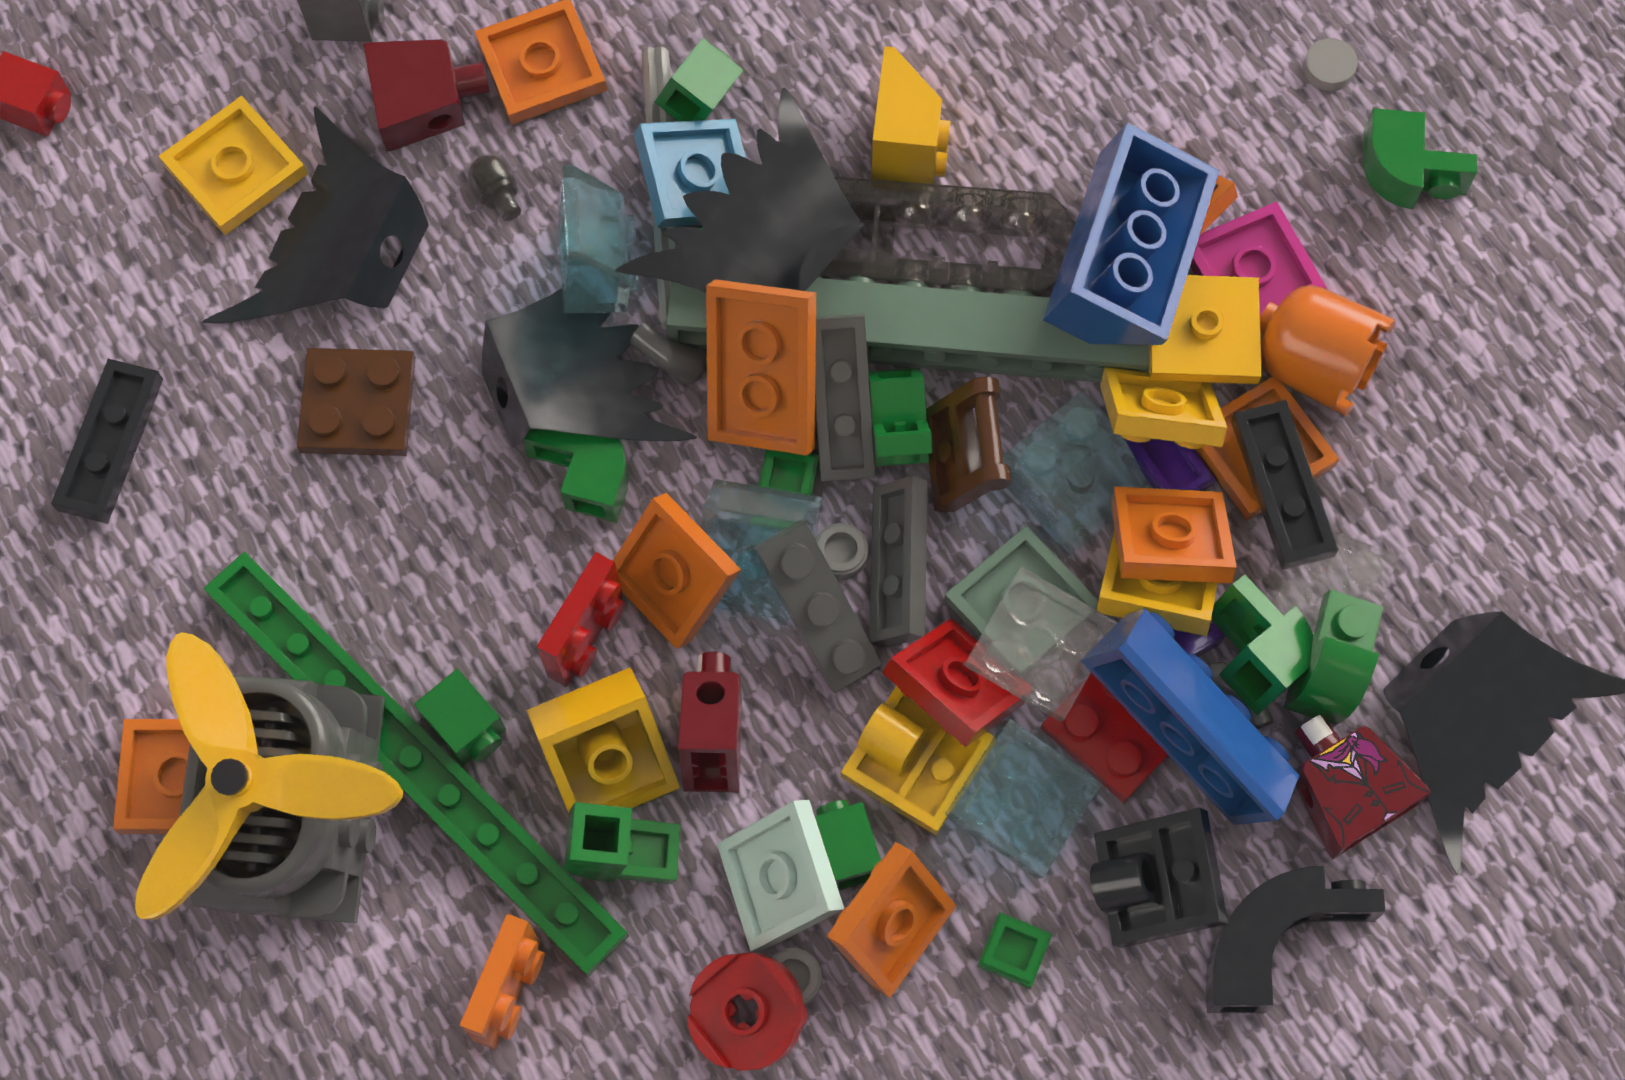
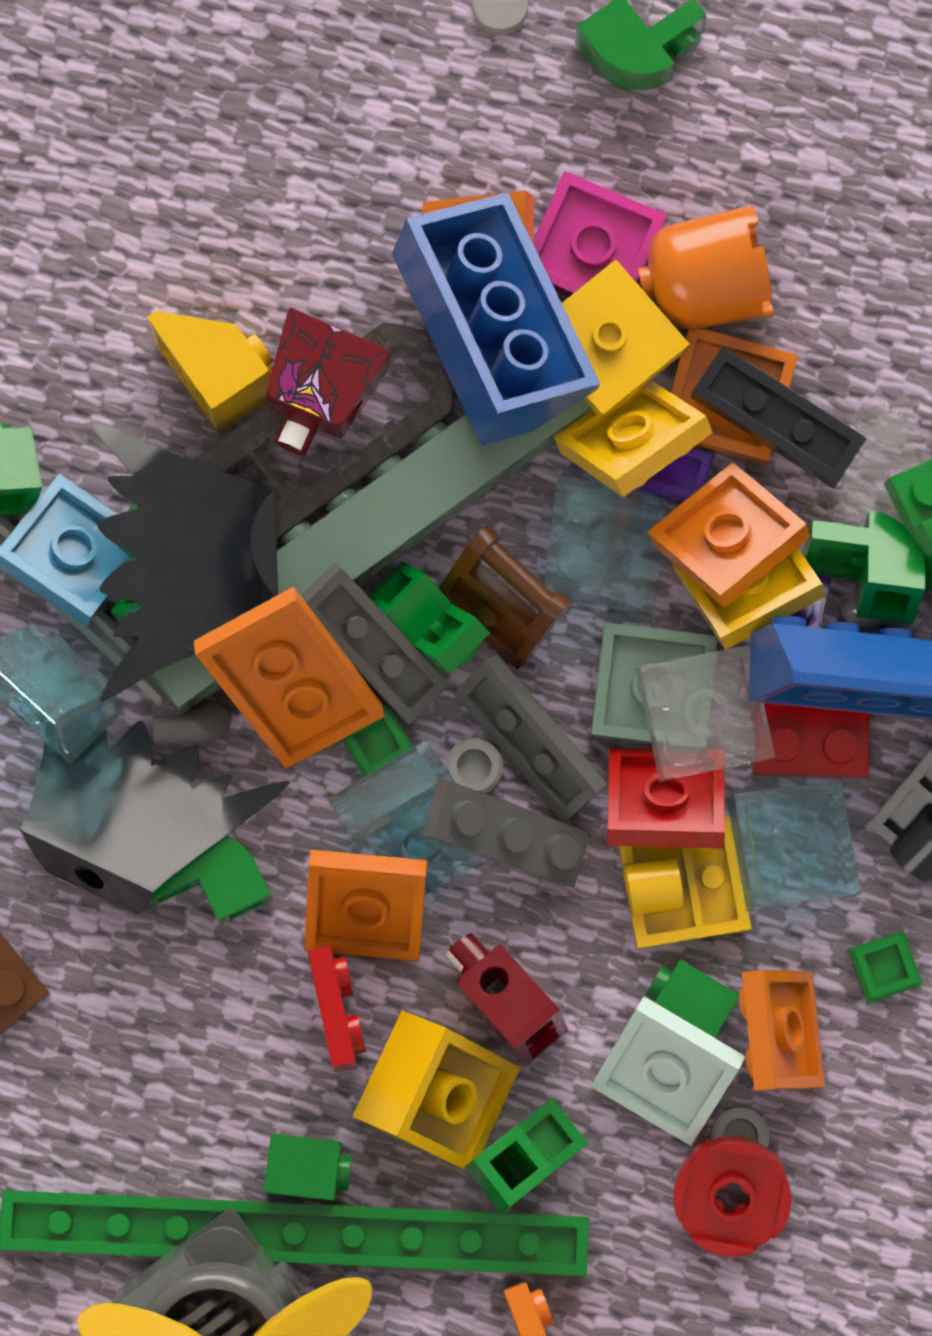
camera: 45 degrees left, 10 degrees up
(970, 188) = (321, 379): none -> dark red torso

